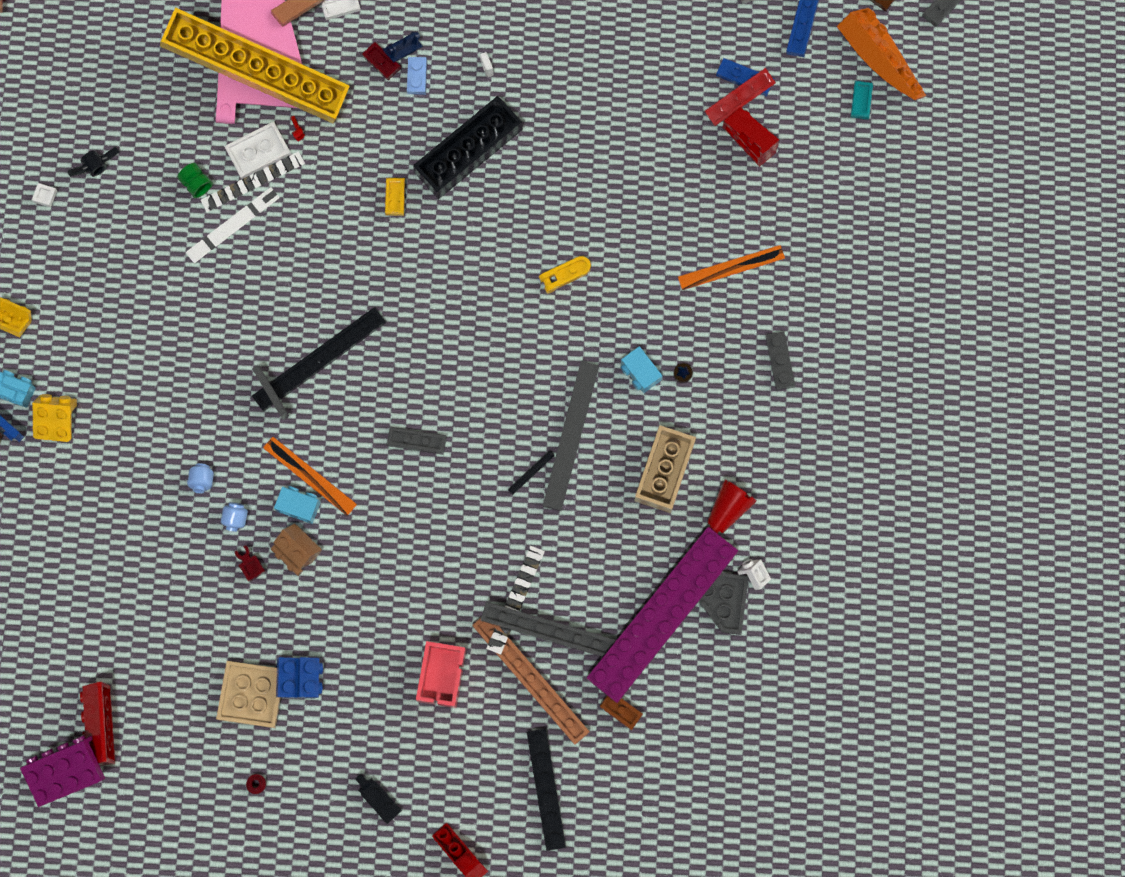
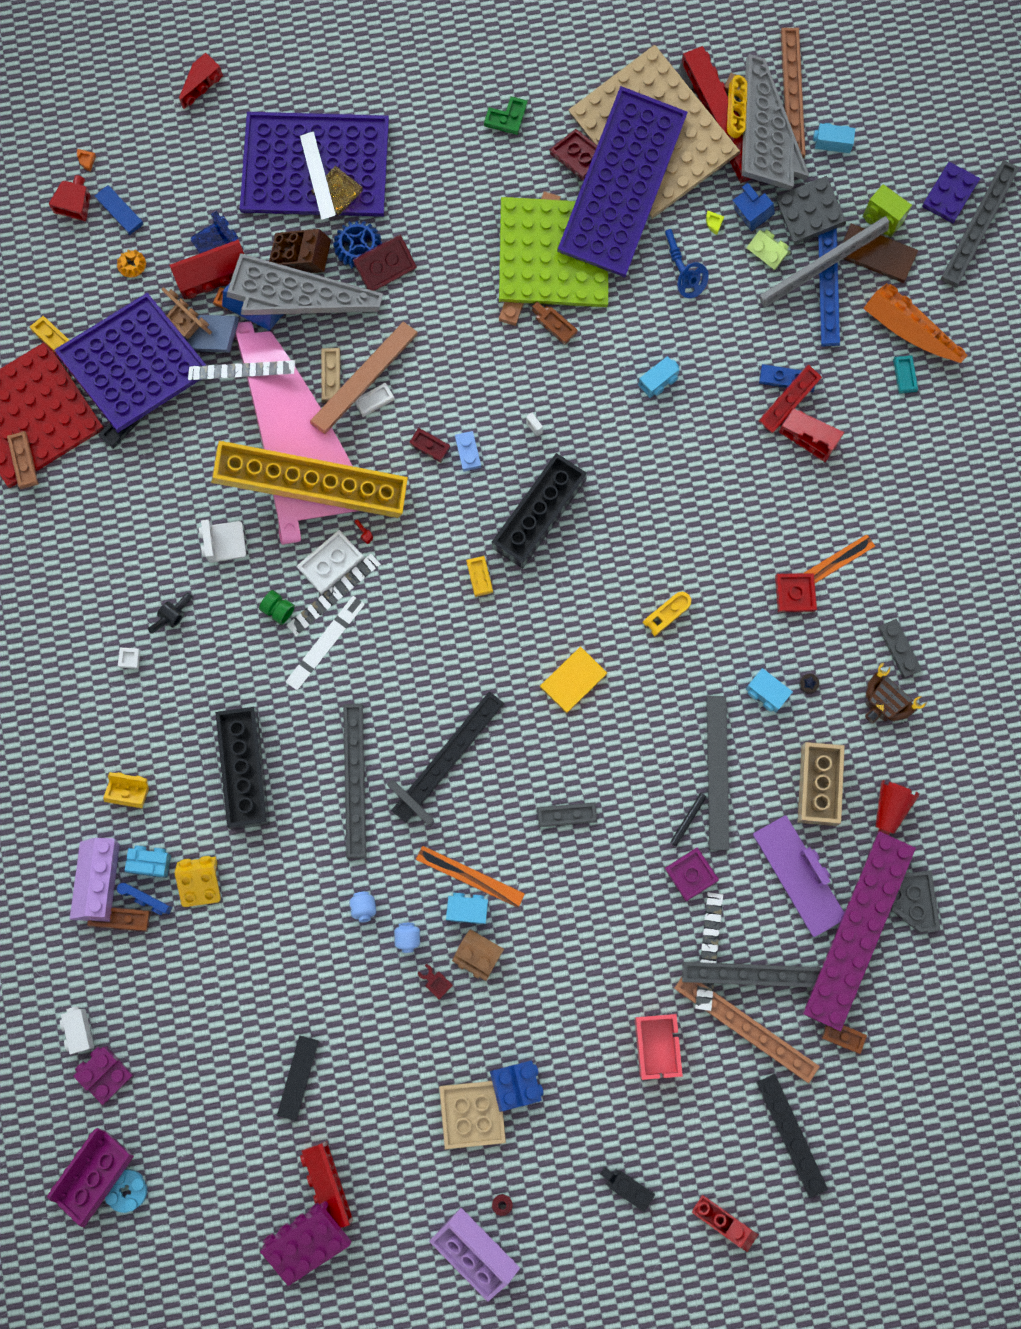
camera: 15 degrees left, 0 degrees up
(98, 621) = (298, 1078): none -> black tile
(122, 322) = (242, 768): none -> black brick
(160, 106) = (222, 541): none -> white bracket
(217, 822) = (474, 1255): none -> lavender slope
(225, 360) = (354, 781): none -> dark grey tile
(403, 47) = (448, 426): dark blue hinge -> none
(457, 315) = (573, 680): none -> yellow tile
(519, 524) = (691, 874): none -> magenta plate
(620, 46) = (659, 376): none -> medium azure brick
(622, 550) = (800, 875): none -> medium lavender bracket
(694, 283) = (796, 592): none -> red plate
(753, 405) = (888, 699): none -> reddish brown torso
(756, 572) = (937, 864): white bracket -> none

